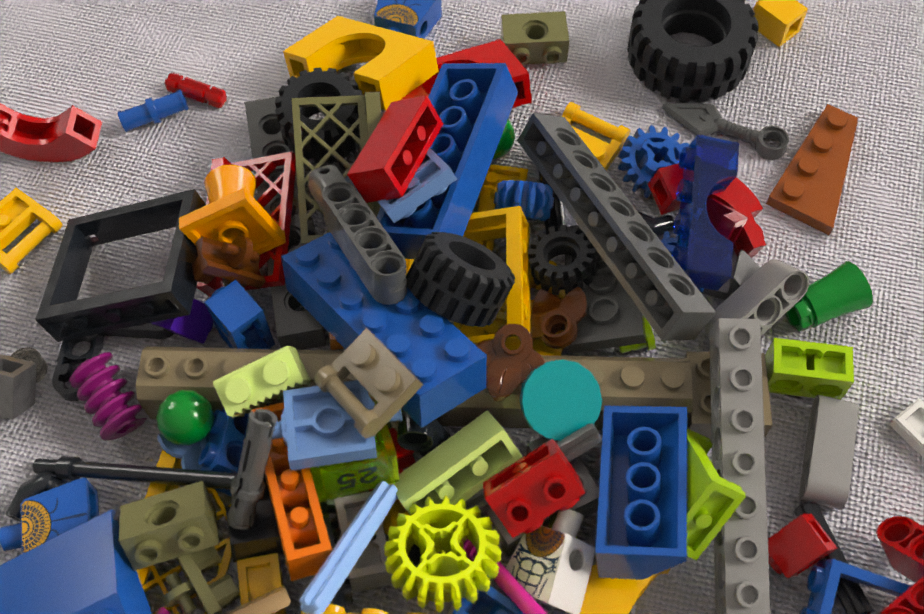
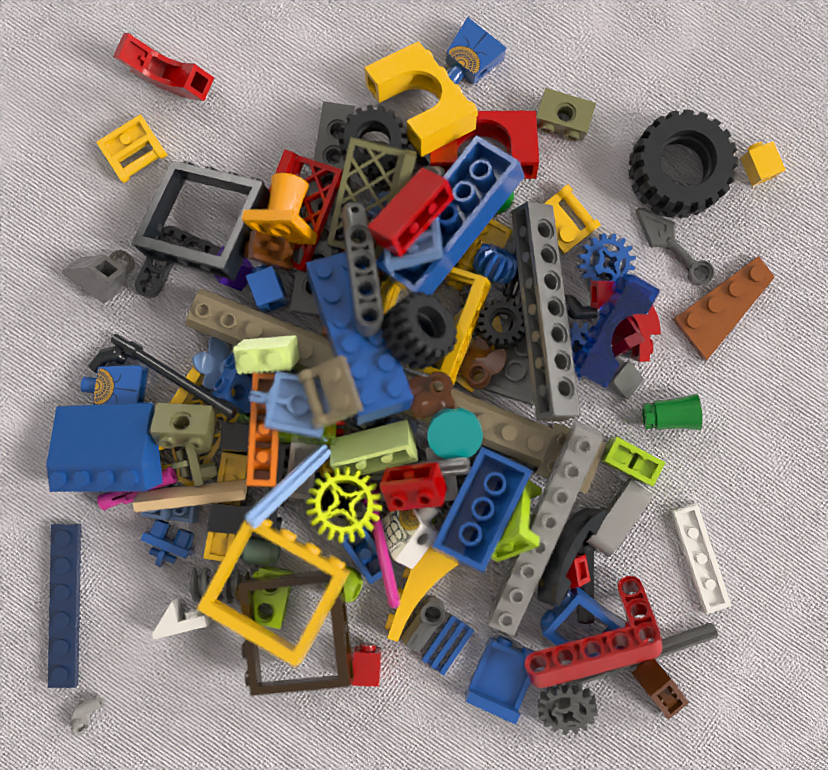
camera: 20 degrees right, 25 degrees up
(105, 398) = (167, 310): magenta piece -> none
(153, 110) = (255, 76): blue pin -> none
(185, 417) = (212, 354): green piece -> none
(196, 90) = (292, 67): red axle -> none
(248, 484) = (238, 422): dark grey pin -> none
(764, 295) = (621, 403): light grey beam -> none
(789, 553) = (553, 583): none -> black slope

